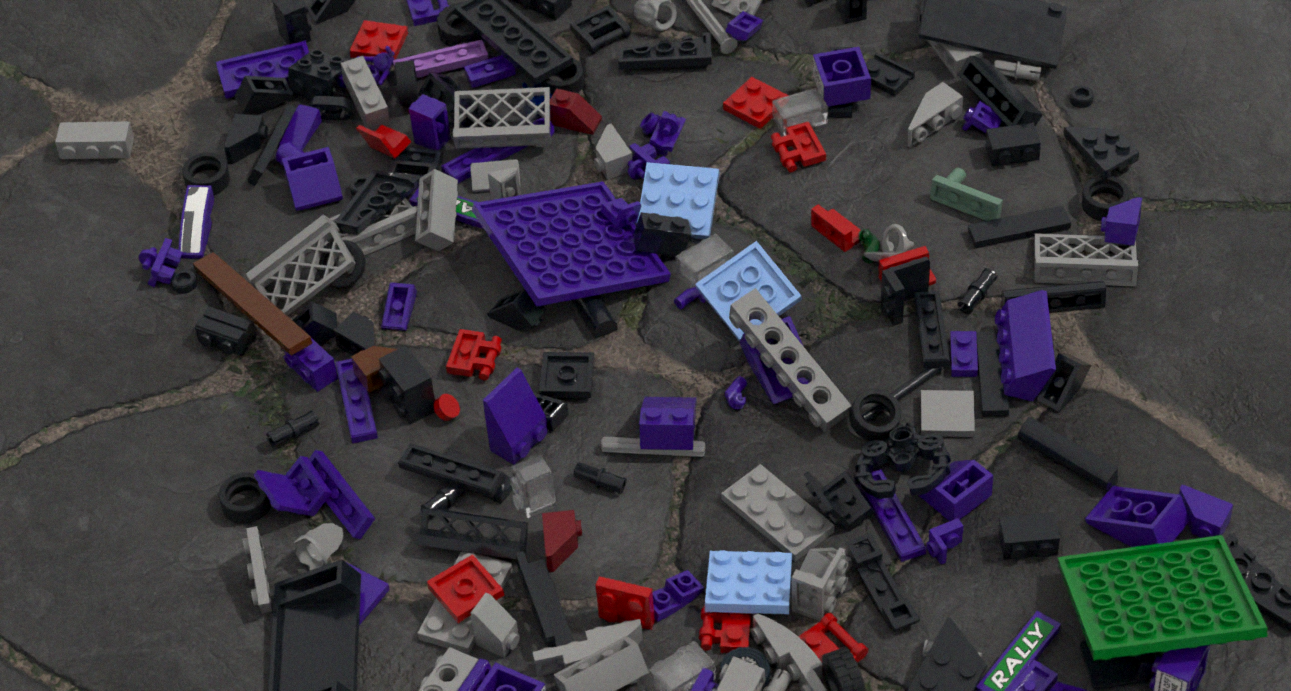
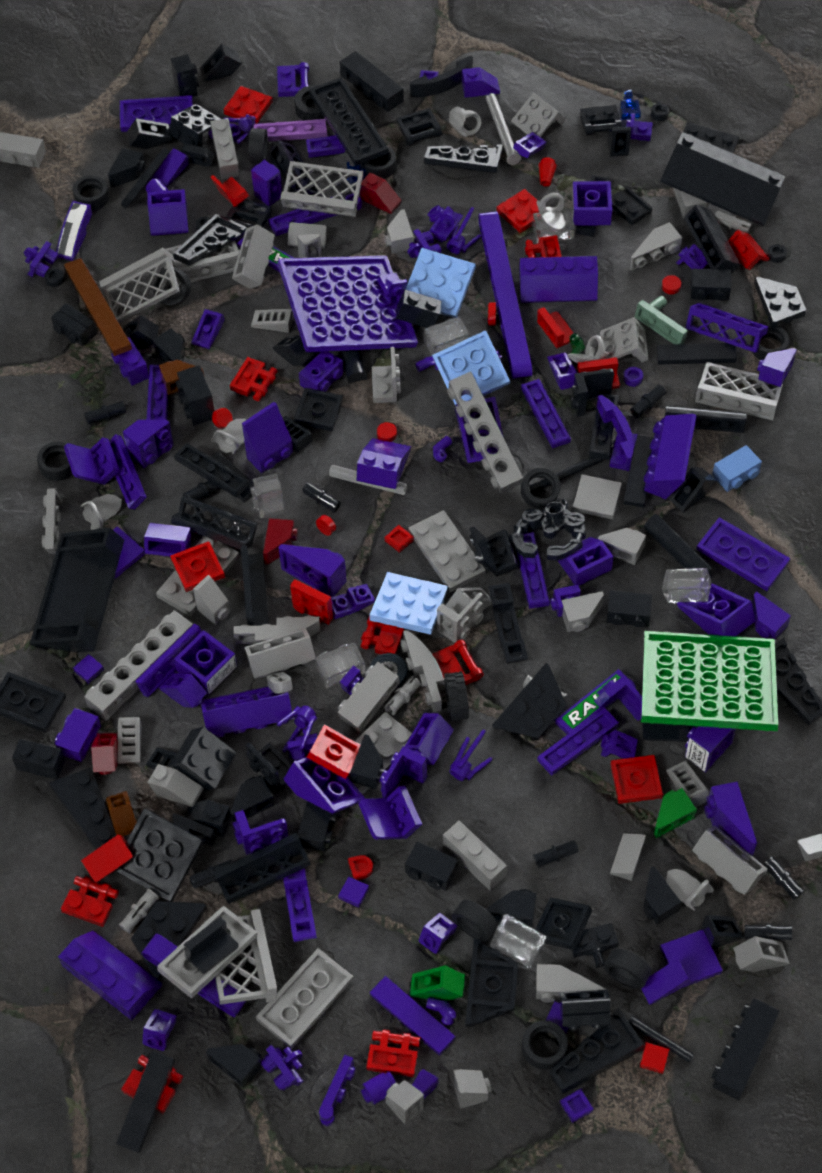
camera: 10 degrees right, 10 degrees up
(359, 449) = (148, 440): none -> dark purple slope
(414, 564) = (166, 539): none -> dark purple piece
(465, 427) = (231, 437): none -> light grey piece
(490, 274) = (282, 324): none -> light grey slope
(559, 329) = (321, 372): none -> dark purple brick
(615, 509) = (325, 525): none -> red tile
(616, 557) = (314, 567): none -> dark purple slope
(644, 325) = (386, 380): none -> light grey bracket
(661, 386) = (387, 432): none -> red tile
(686, 152) = (457, 241): none -> dark purple plant
(712, 509) = (399, 538): none -> red tile
(753, 225) = (492, 314): none -> red tile
(764, 201) = (505, 295): none -> dark purple beam
(773, 52) = (546, 171): none -> red cone
(797, 98) = (552, 215): none -> light grey piece
(825, 170) = (558, 279): none -> dark purple slope
(854, 328) = (545, 413): none -> dark purple tile
(861, 275) = (562, 370): none -> dark purple slope
(928, 224) = (625, 339): none -> light grey bracket
(935, 310) = (610, 412): none -> dark purple slope
(949, 266) = (633, 376): none -> dark purple tile
(964, 154) = (671, 284): none -> red tile
(969, 550) = (581, 611): none -> light grey slope
(1002, 460) = (624, 544): none -> light grey slope
(1044, 98) = (747, 249): none -> red panel
(1051, 180) = (730, 321): none -> dark purple fence
(1058, 635) = (625, 691): none -> dark purple bracket
(1093, 493) = (686, 585): none -> clear piece
(1111, 347) = (737, 468): none -> medium blue brick
(1149, 446) = (743, 554): none -> dark purple plate

